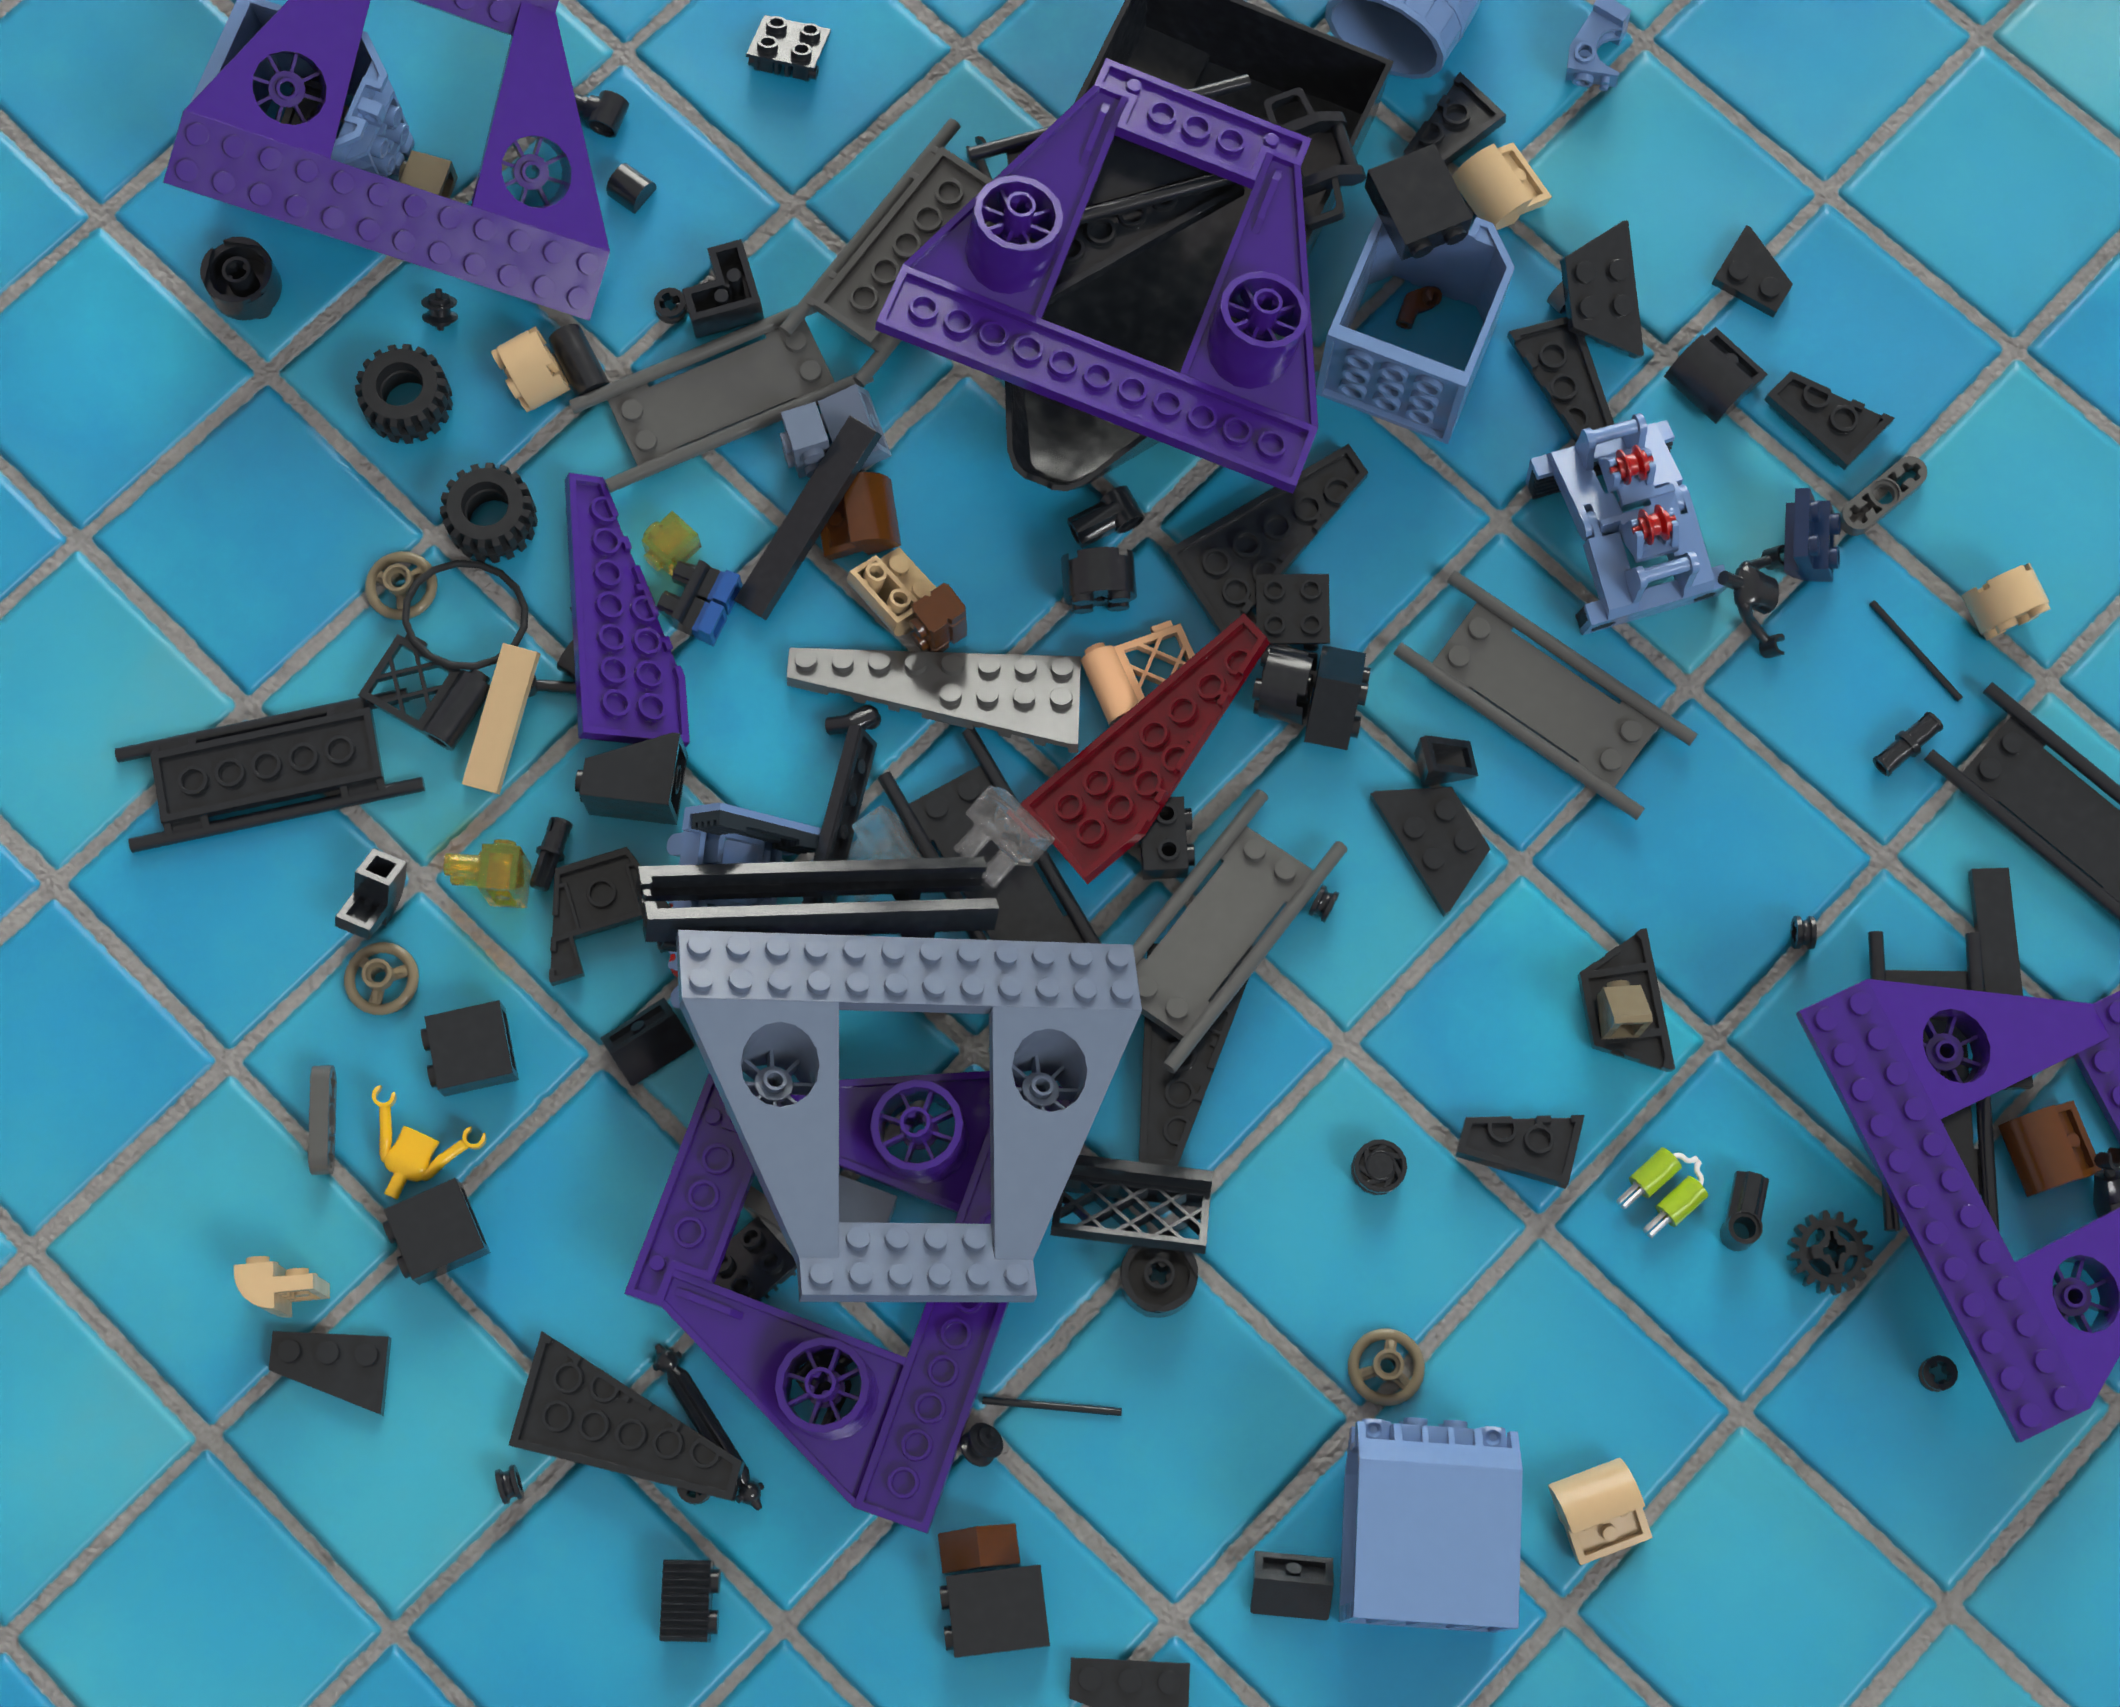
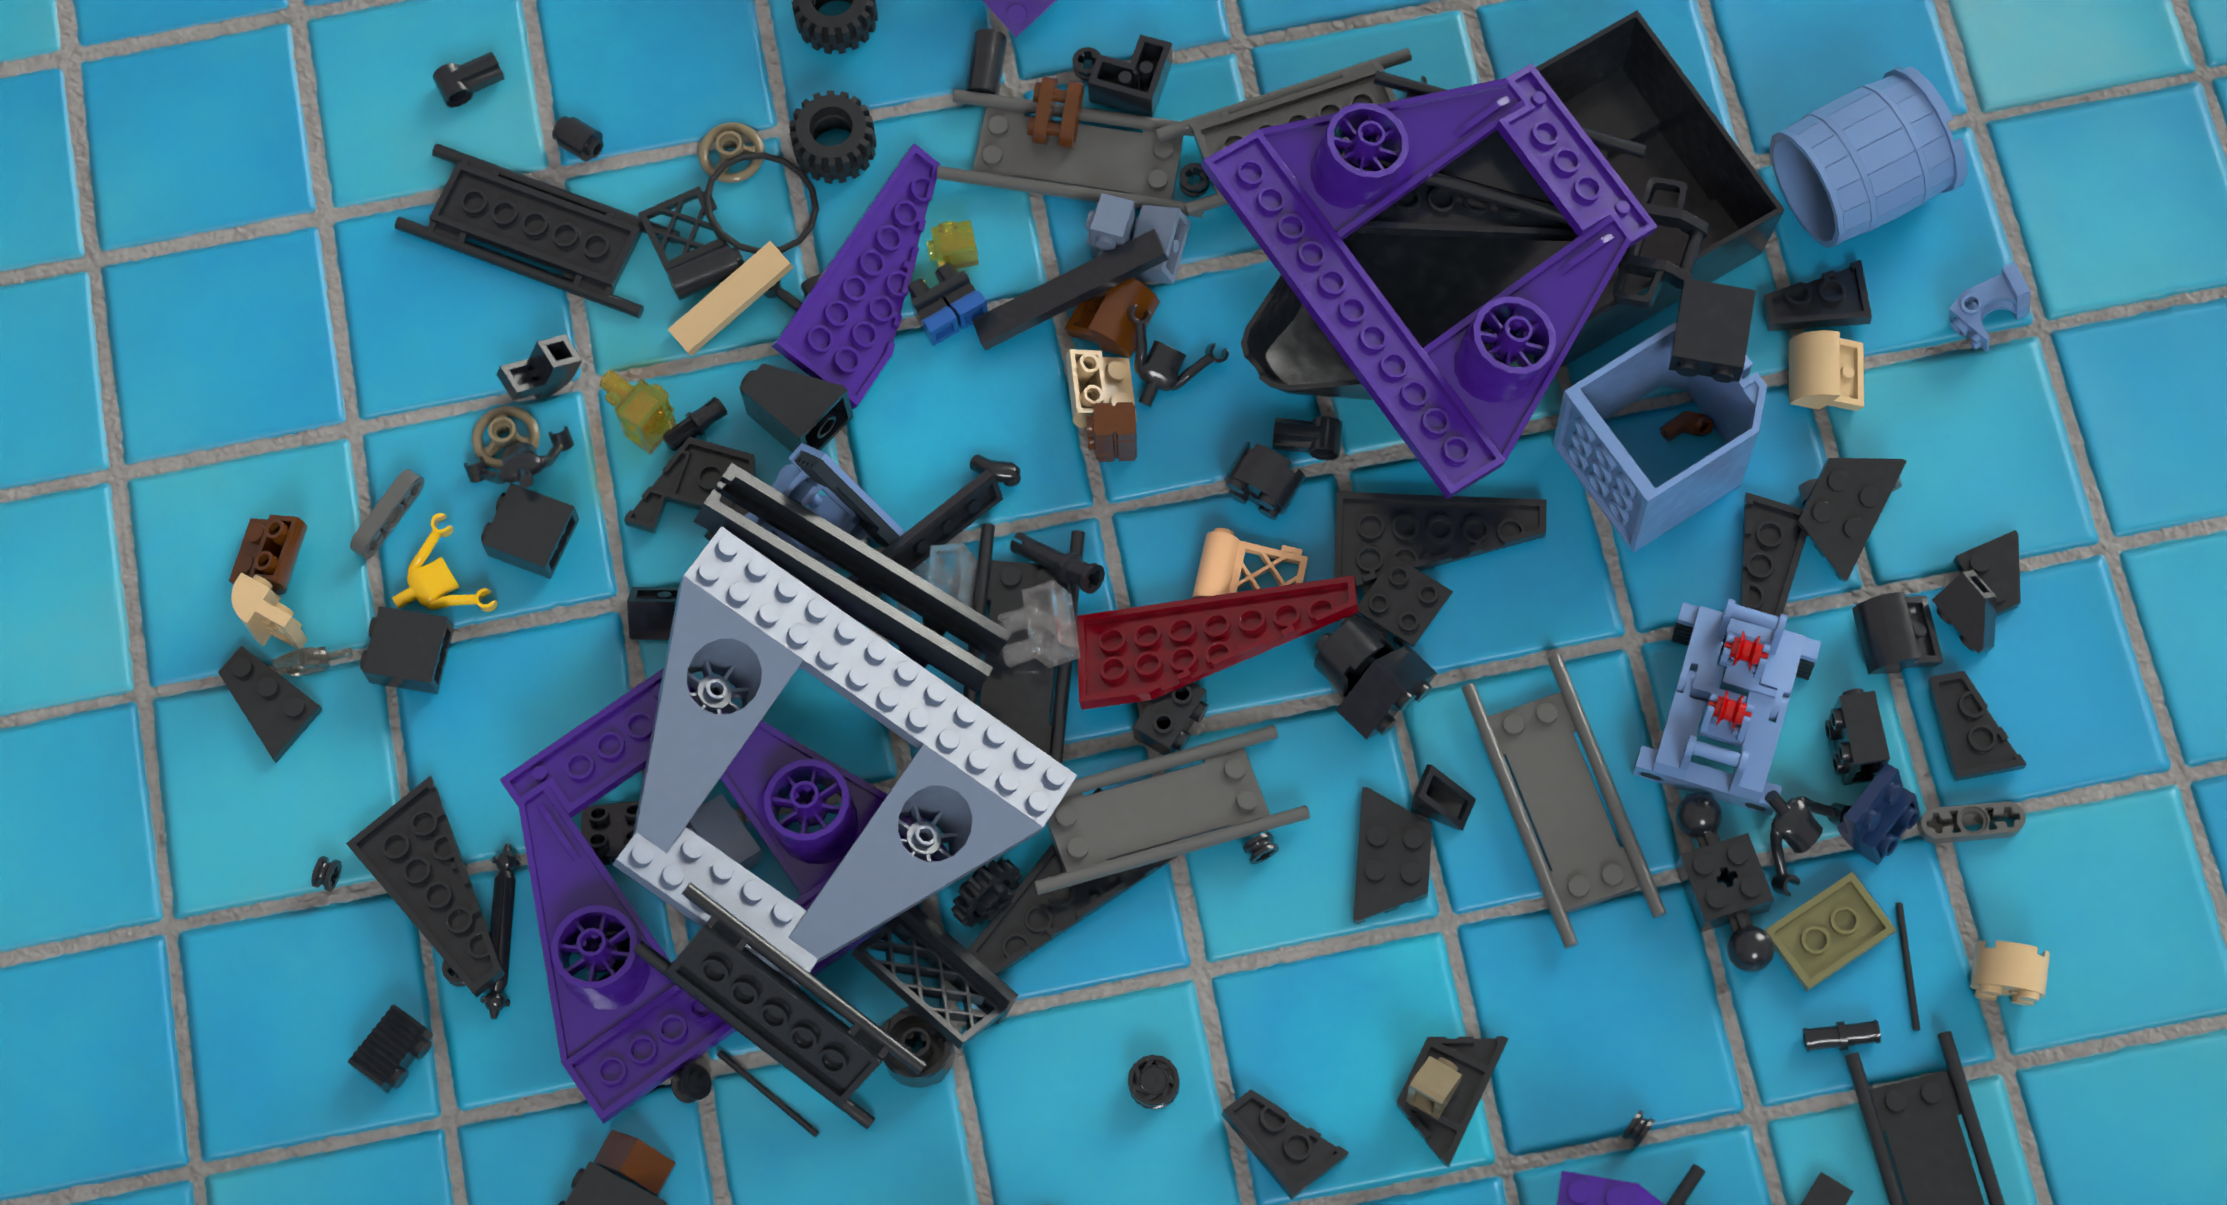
camera: 40 degrees right, 5 degrees down
(96, 677) = (460, 82): none -> black piece
(236, 1227) = (270, 550): none -> reddish brown brick
(248, 660) = (578, 138): none -> black brick
(348, 1301) = (309, 660): none -> clear smoke hand
(416, 992) = (521, 462): none -> black piece
(531, 369) = (942, 46): tan brick -> none
(662, 354) = (1046, 95): none -> reddish brown brick
(850, 346) = (1190, 190): none -> black bush
(933, 532) = (1163, 362): none -> black piece
(987, 766) = (1068, 566): none -> black pin
(998, 692) = (1120, 516): wing -> none
(1027, 1332) = (776, 1012): none -> black piece
(1123, 1101) = (986, 892): none -> black gear
(1732, 655) = (1715, 903): none -> black brick
(1750, 481) = (1857, 737): none -> black brick
(1759, 314) = (1971, 609): none -> black slope
(1837, 663) = (1830, 931): none -> olive plate

